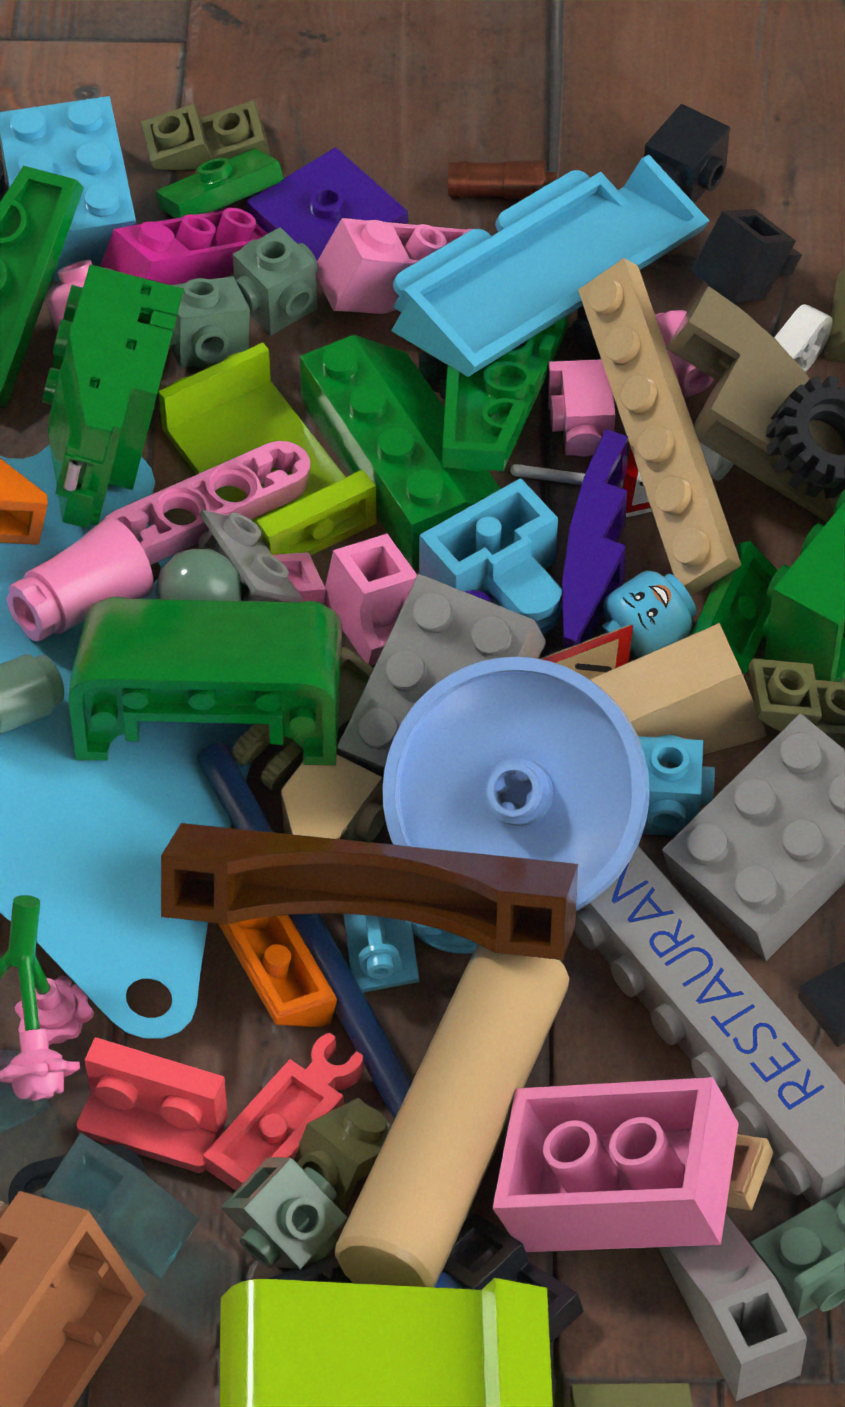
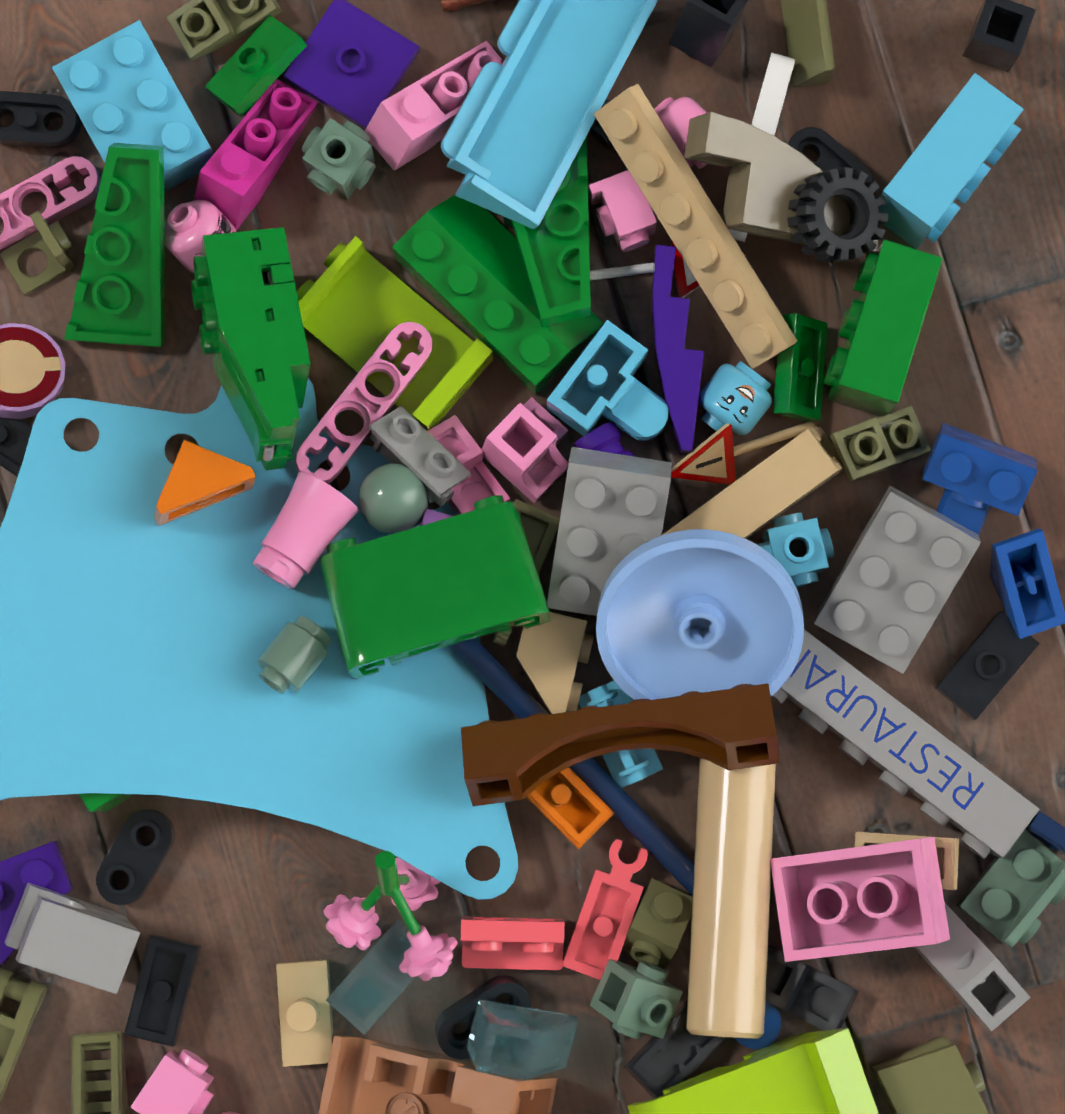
camera: 15 degrees left, 30 degrees up
(210, 322) = (306, 218): sand green brick -> none

